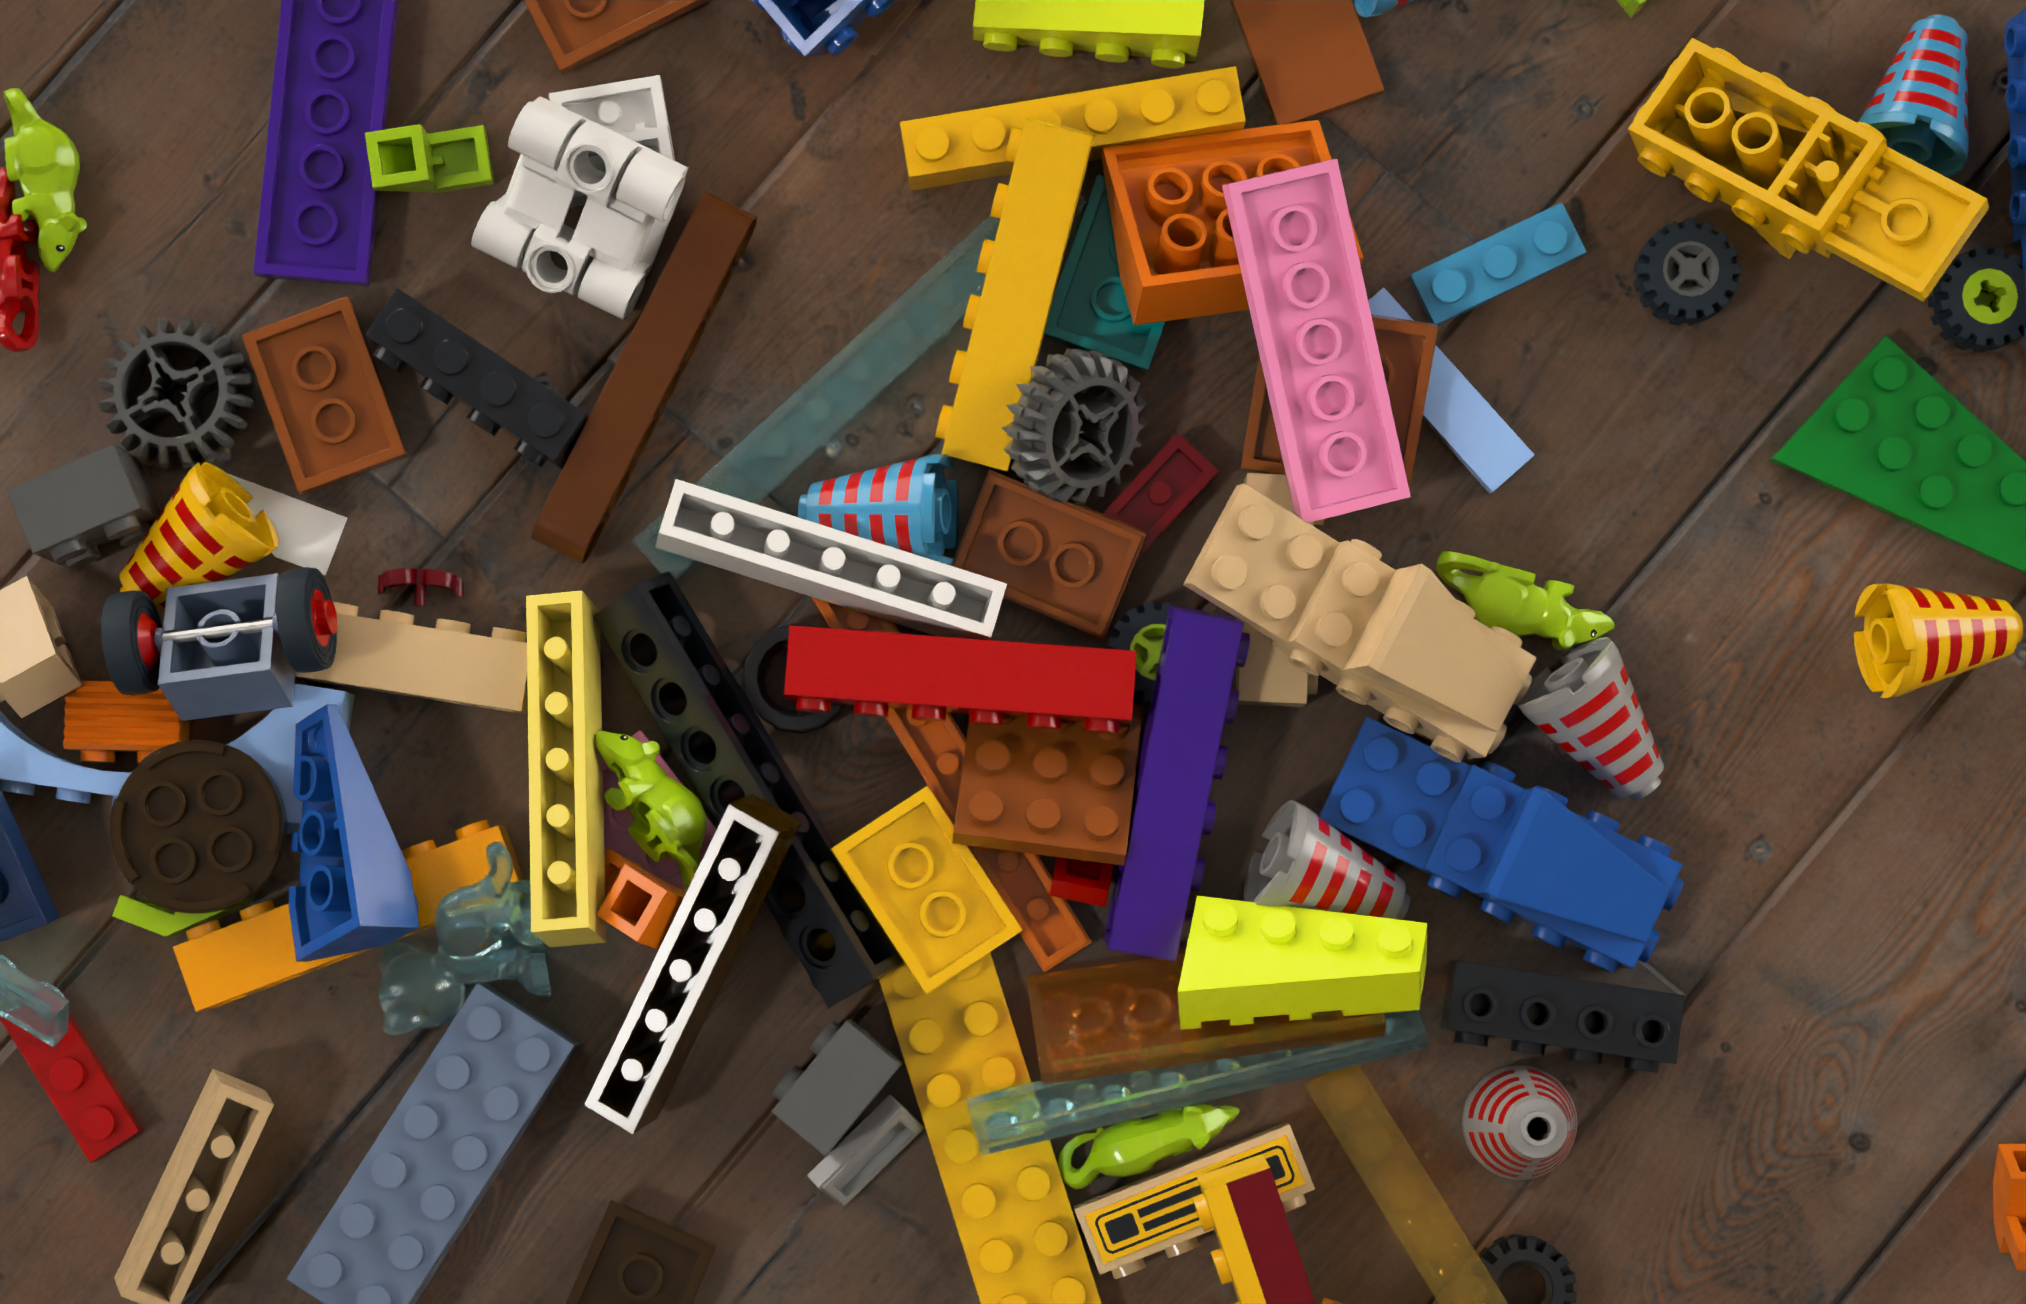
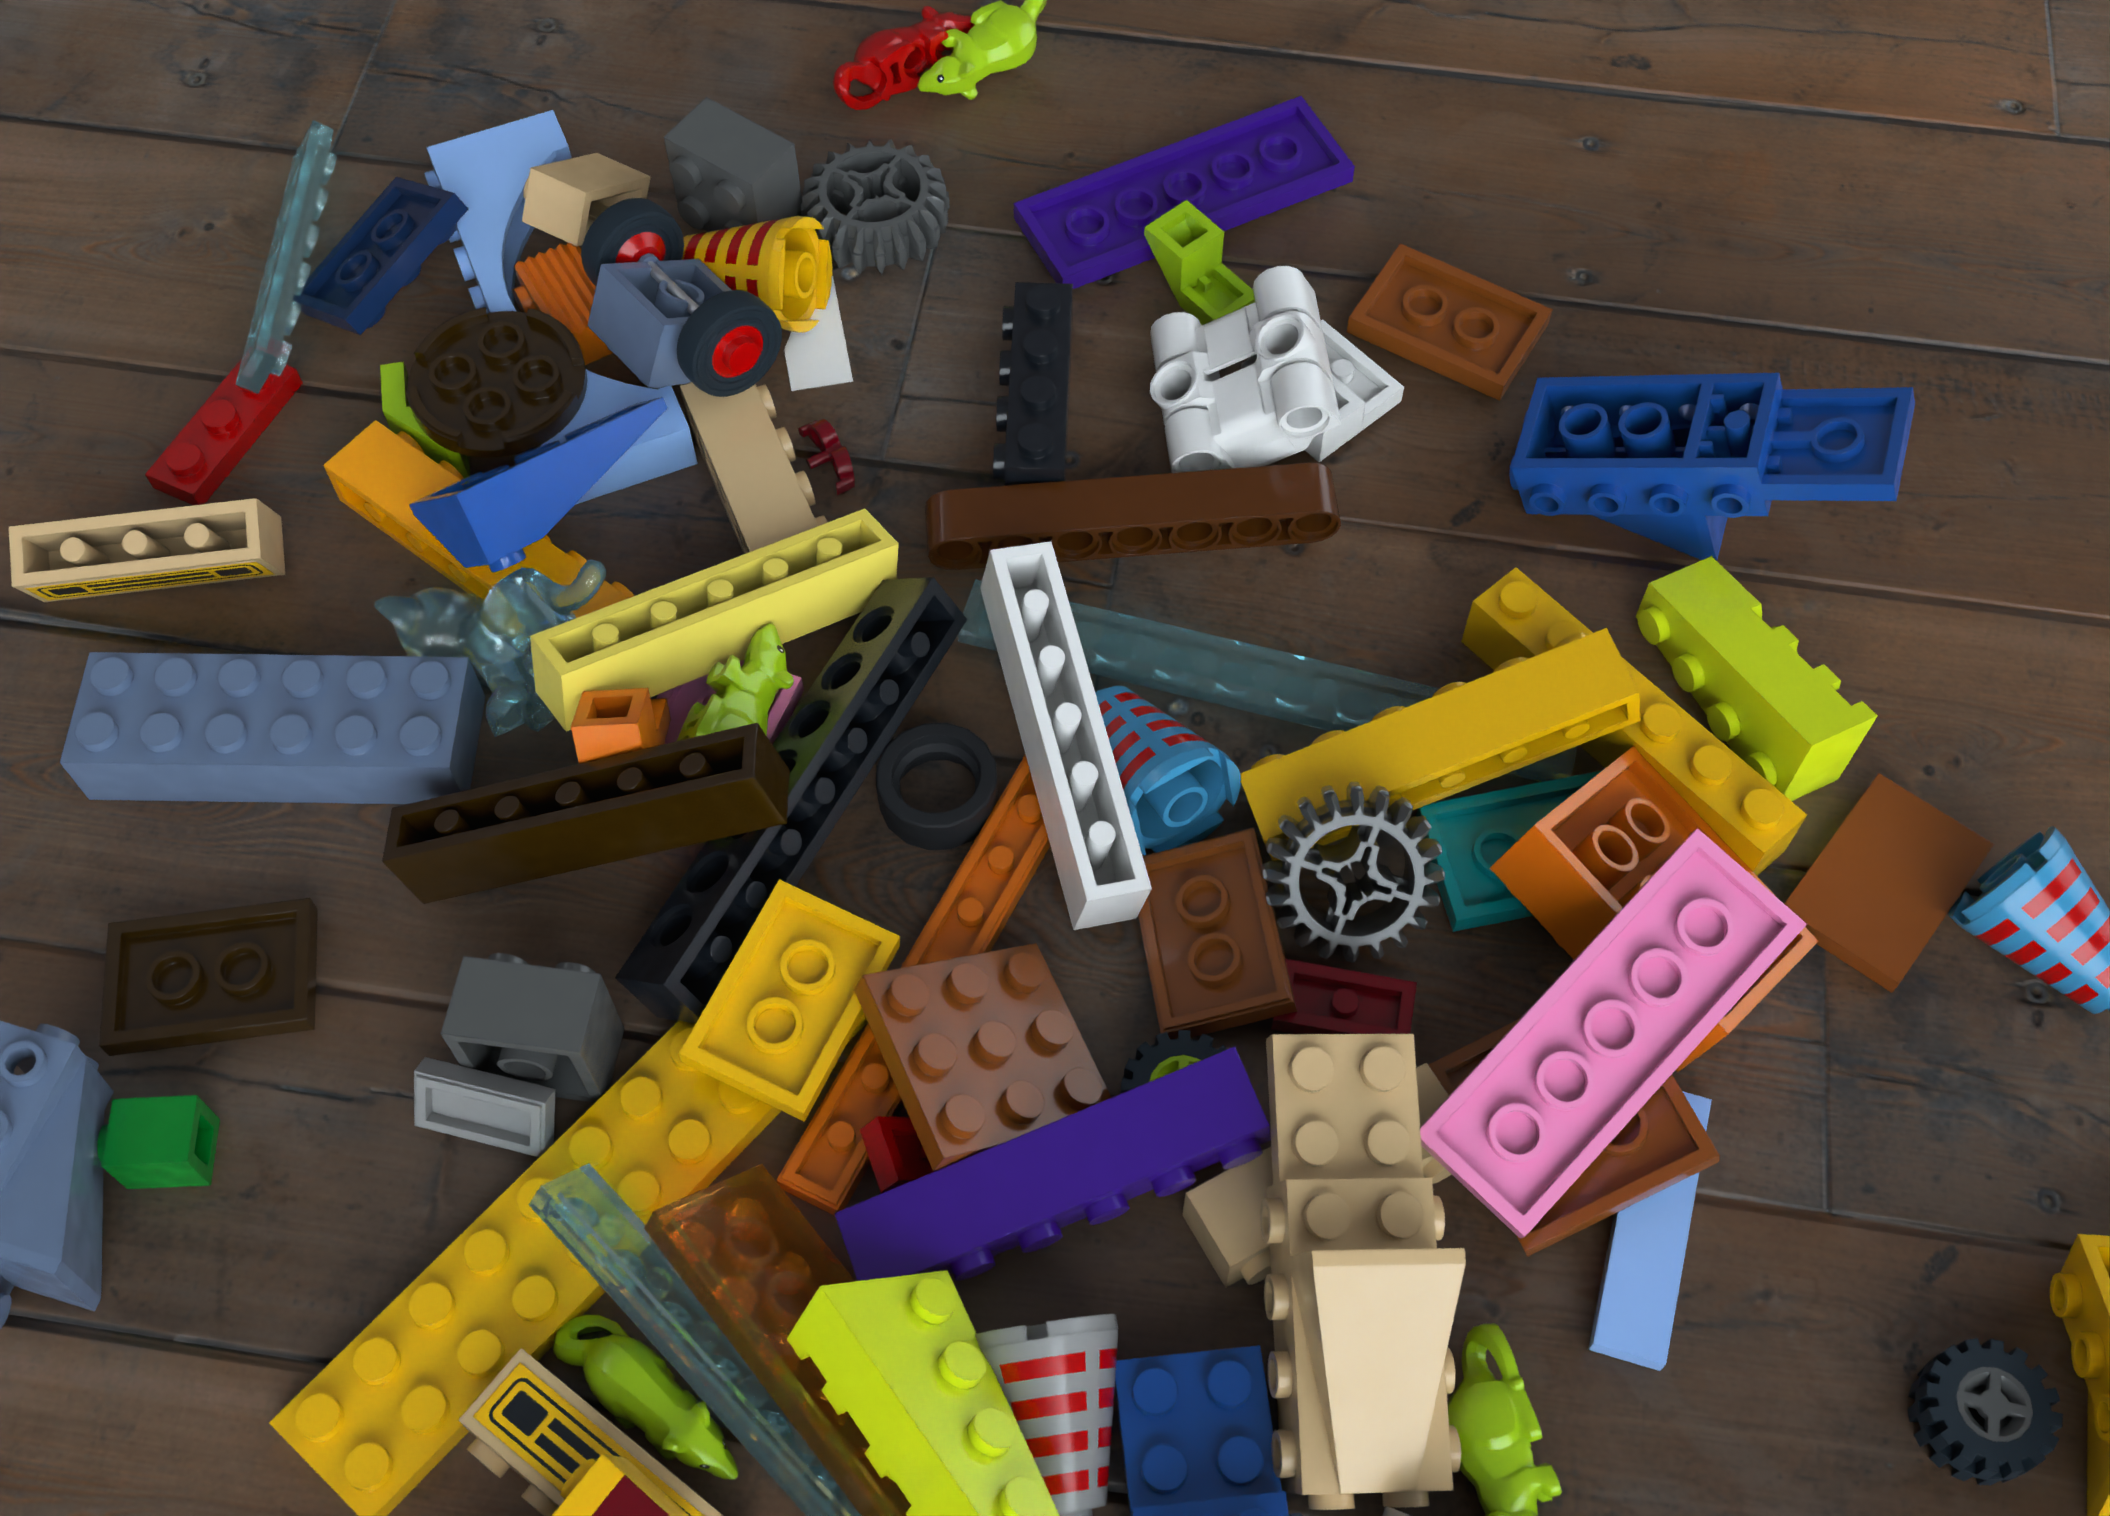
camera: 60 degrees right, 25 degrees down
(324, 395) = (942, 305): dark orange plate -> none
(960, 677) = (1034, 909): red brick -> none
(1497, 265) = (1826, 1207): dark azure plate -> none

